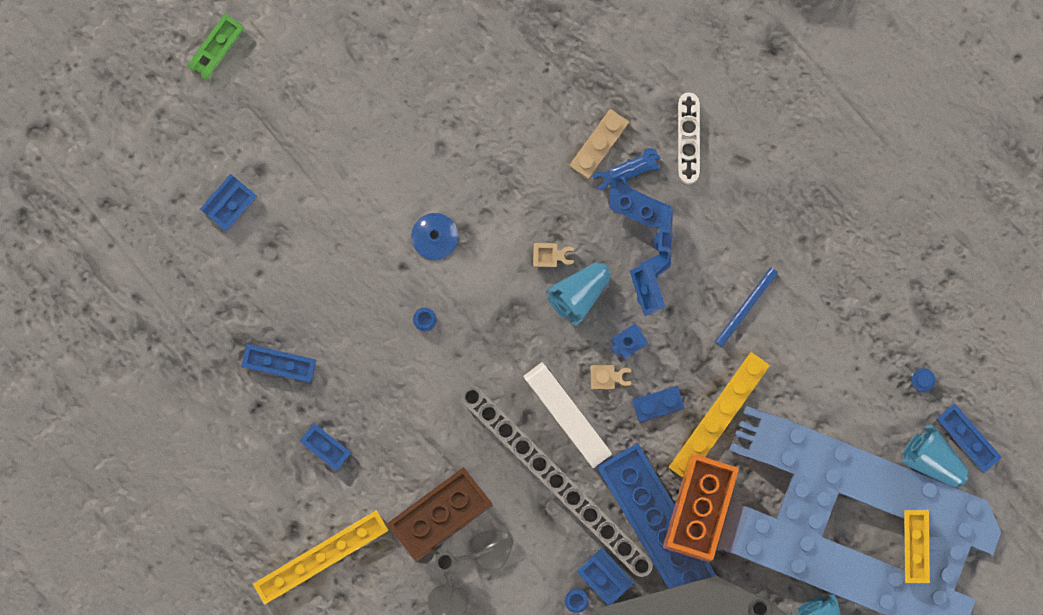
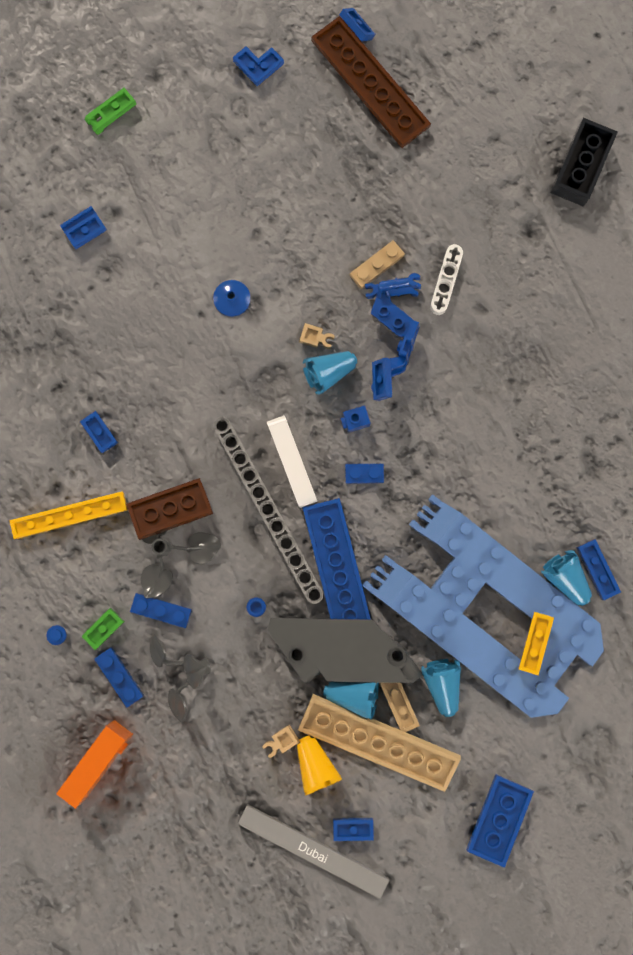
camera: 10 degrees right, 0 degrees up
(279, 363) = (83, 358): blue plate -> none
(424, 319) = (204, 357): blue plate -> none
(604, 377) = (329, 441): tan plate -> none
(605, 577) = (284, 595): blue plate -> none
(700, 508) = (374, 563): orange brick -> none
(721, 412) = (408, 496): yellow plate -> none
(746, 307) = (453, 419): blue bar -> none
(923, 380) = (575, 514): blue plate -> none

